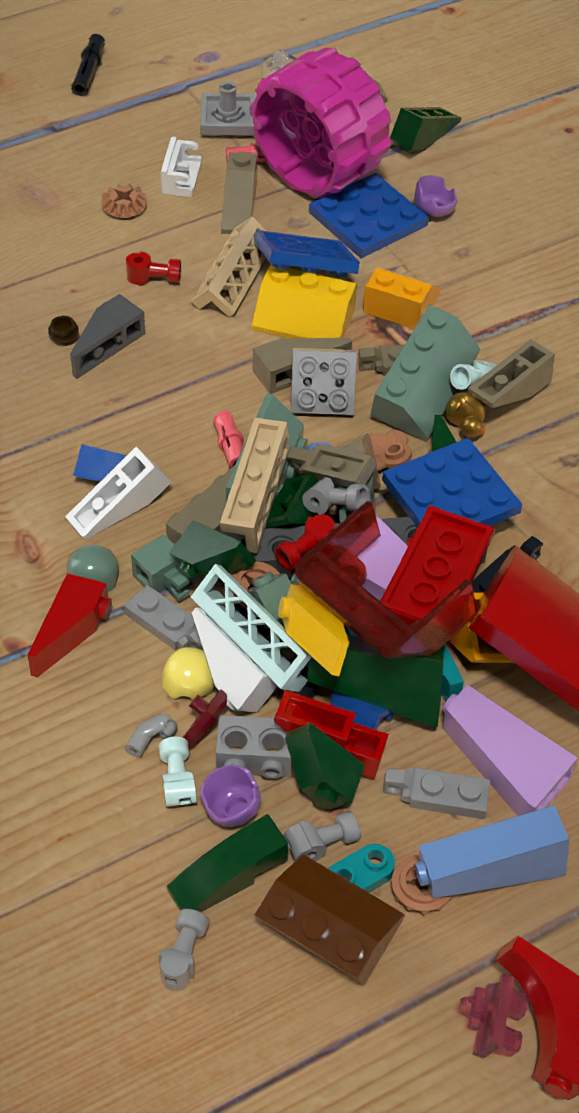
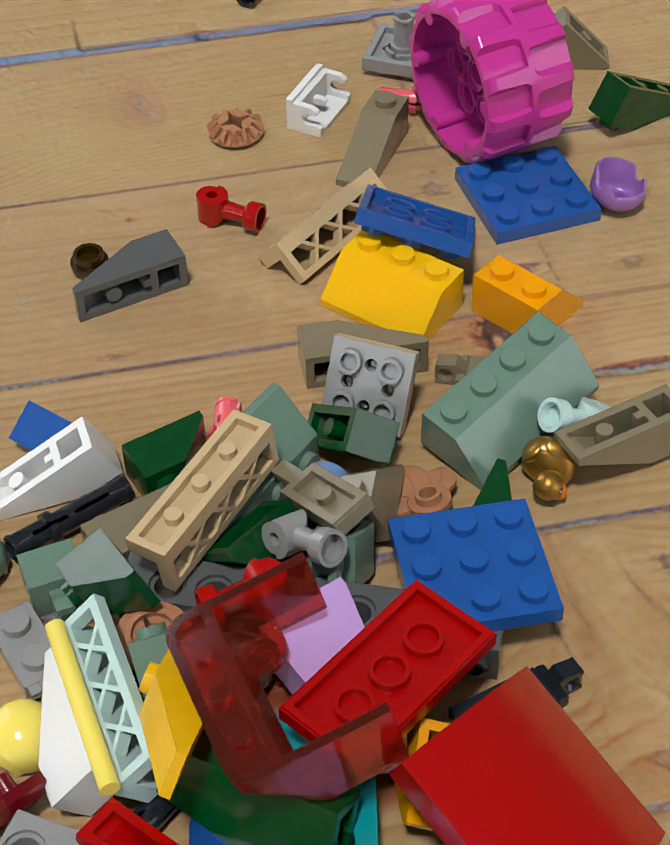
camera: 20 degrees right, 5 degrees down
(124, 545) = (55, 525): none -> black pin
(195, 465) = (163, 453): none -> dark green slope
(238, 639) = (82, 708): none -> light yellow bar
(327, 417) = (354, 432): none -> dark green slope

